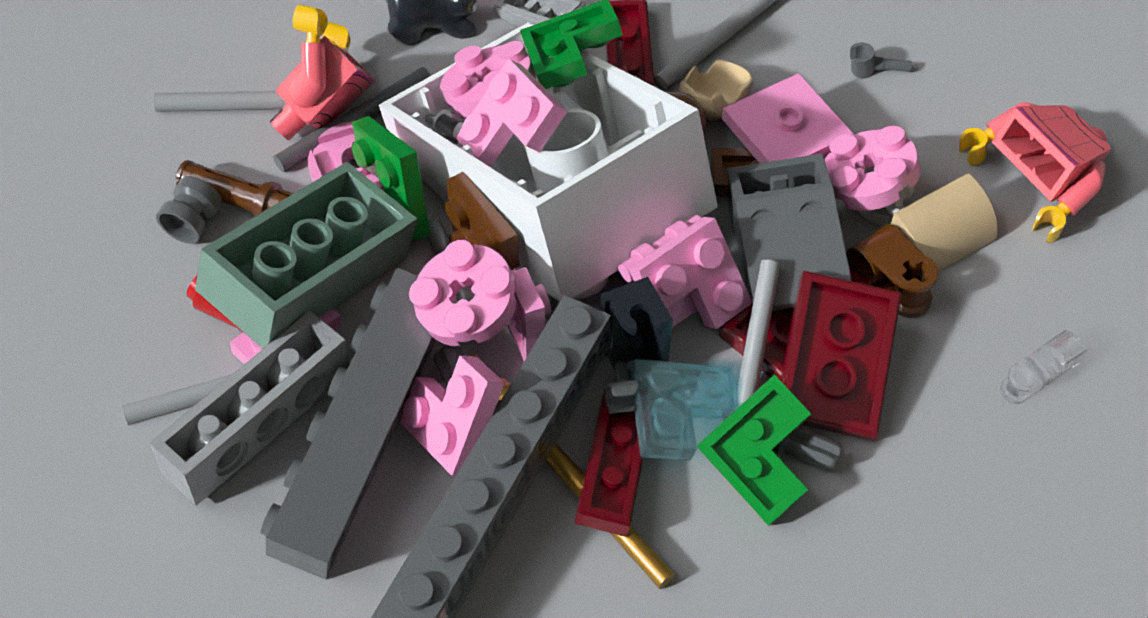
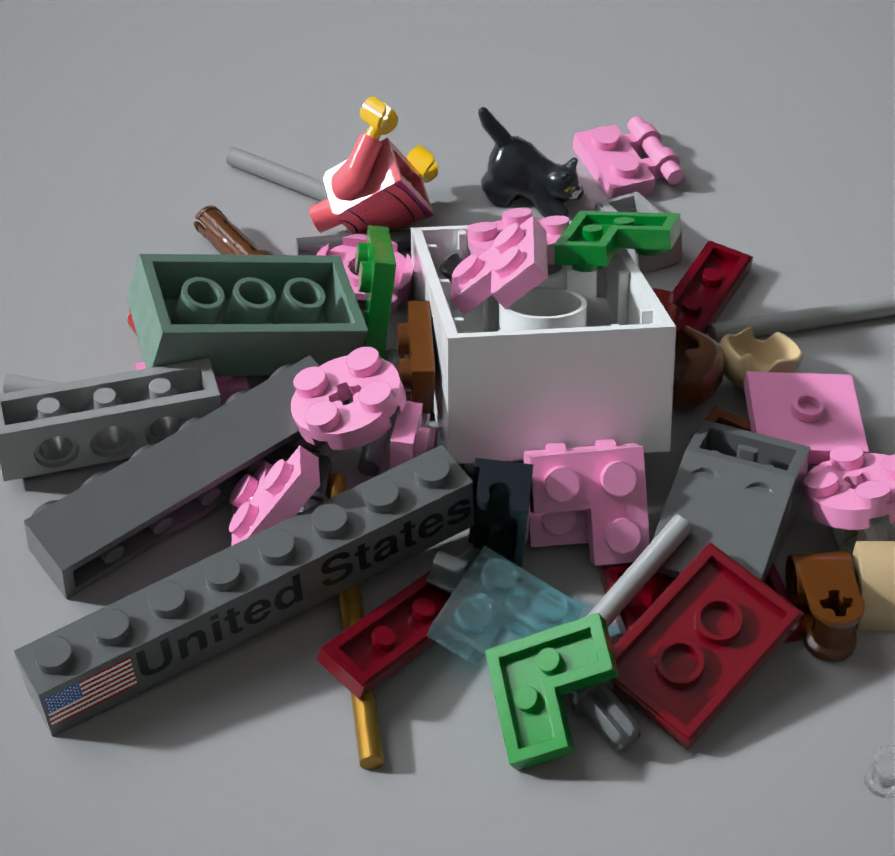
camera: 30 degrees right, 10 degrees down
(190, 208) = (193, 237): dark grey wheel -> none

